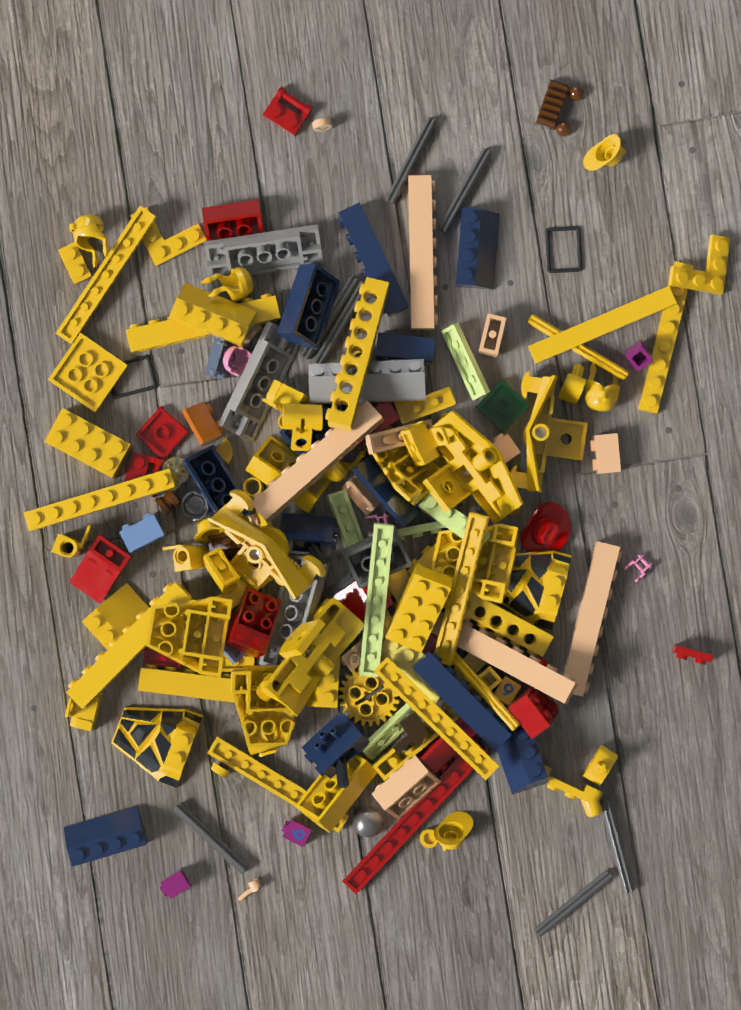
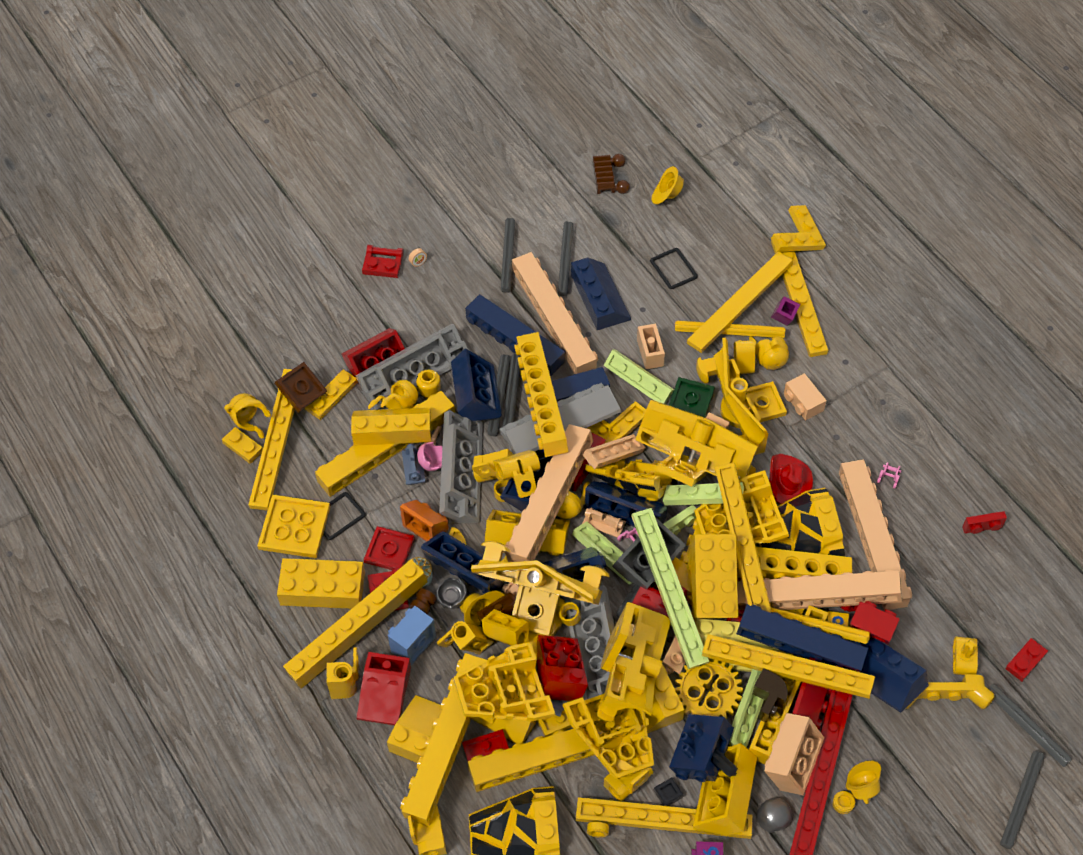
camera: 25 degrees left, 30 degrees down
(147, 234) = (300, 387): none -> reddish brown tile
(268, 279) = (428, 382): none -> yellow head
(293, 763) = (668, 792): none -> black tile
(423, 442) = (638, 445): yellow piece -> none
(651, 791) = (1026, 659): none -> red plate

